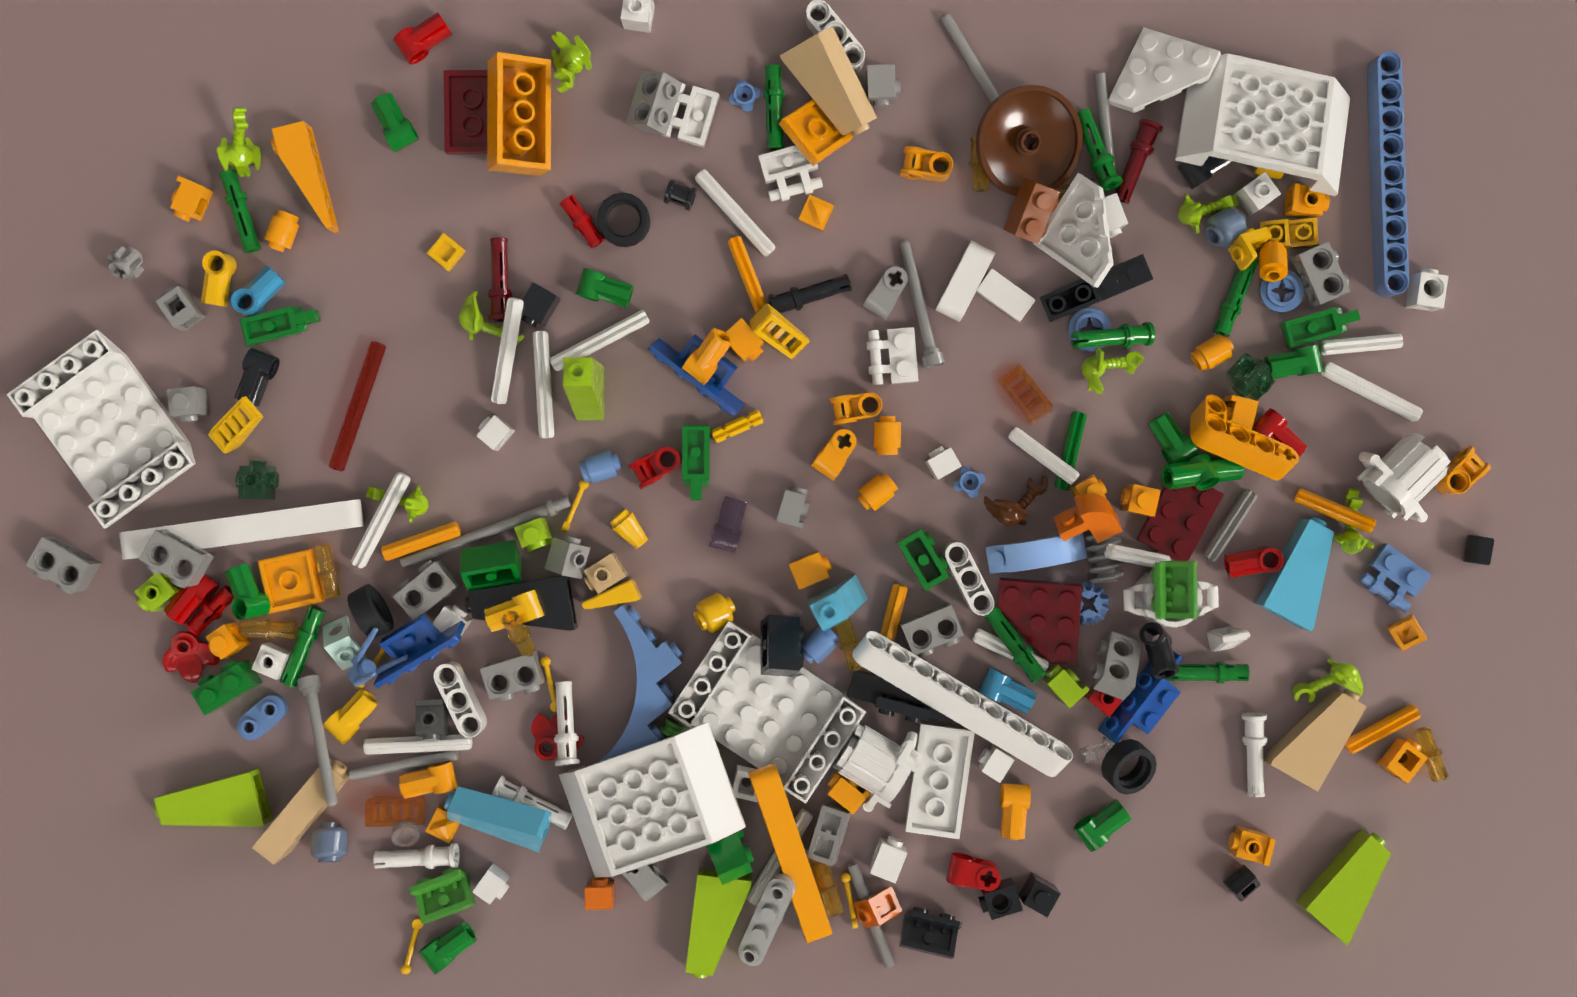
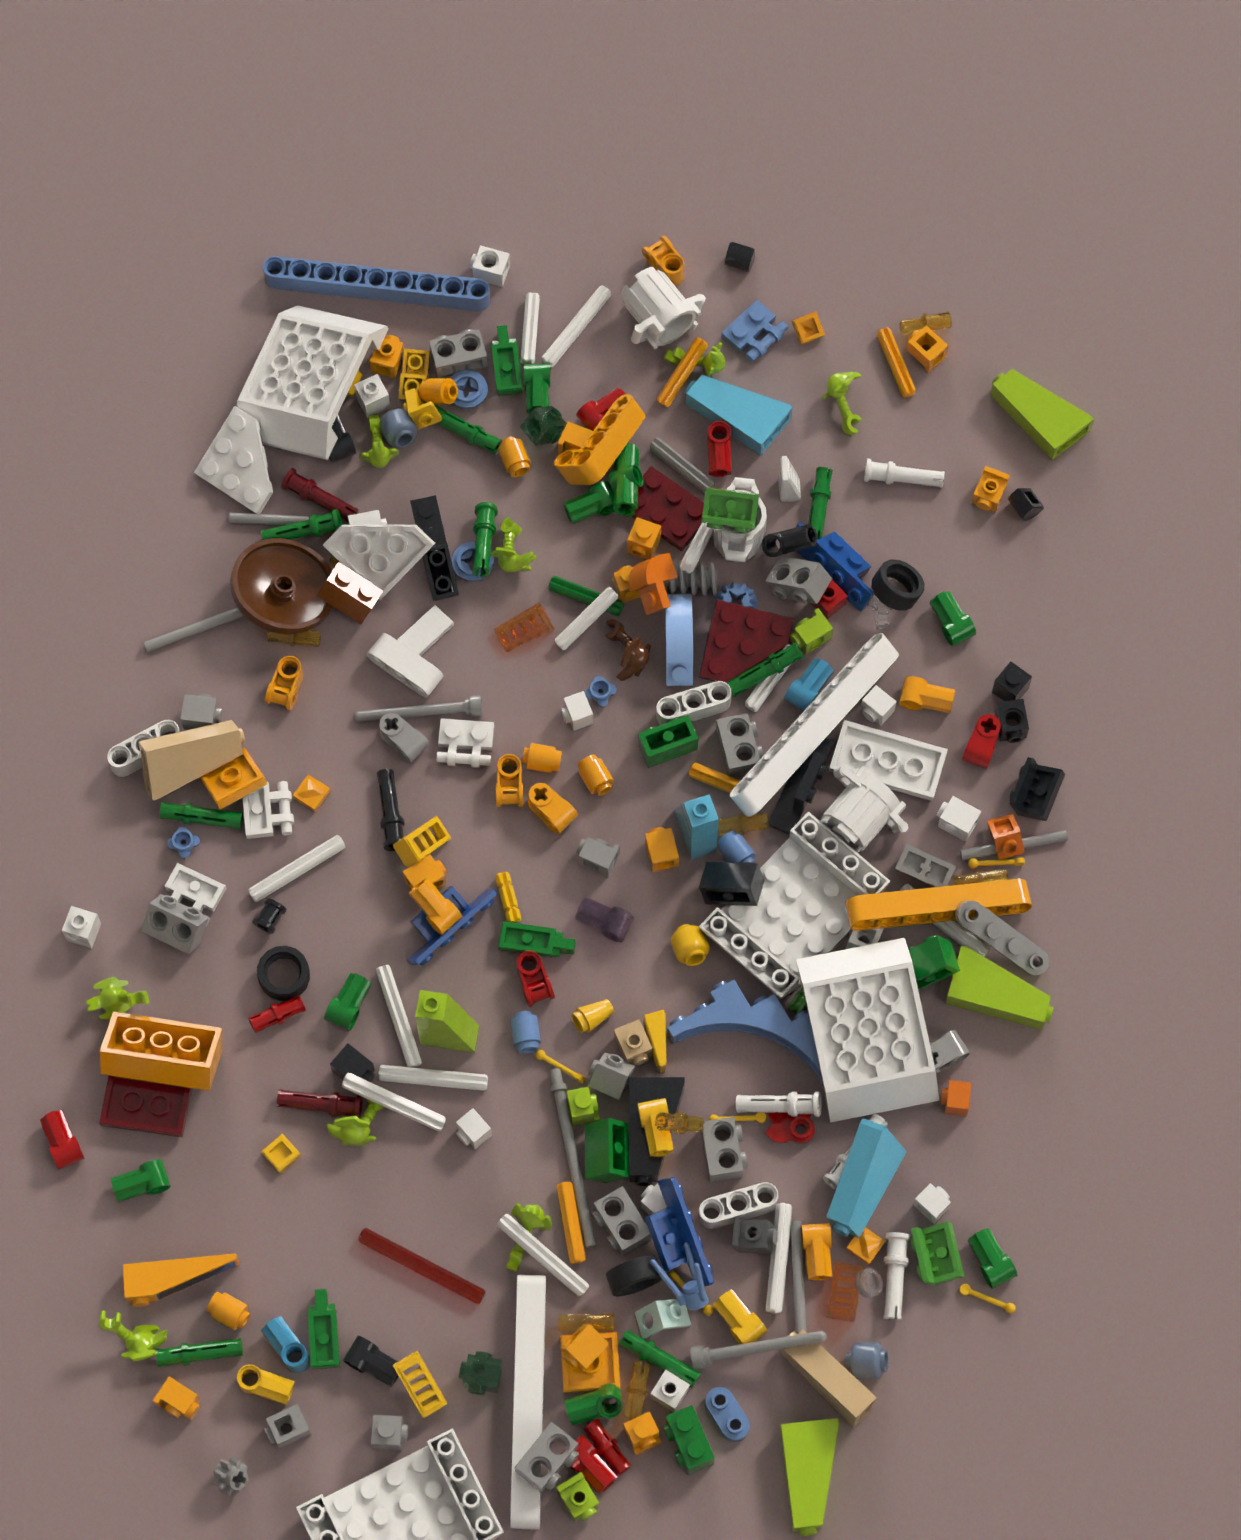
camera: 80 degrees left, 20 degrees down
(188, 661) = (656, 1479): red plate -> none
(293, 575) = (583, 1347): none -> light orange brick
(747, 273) = (360, 865): light orange axle -> none
(846, 792) = (886, 847): light orange brick -> none
(1317, 739) = (899, 420): tan slope -> none

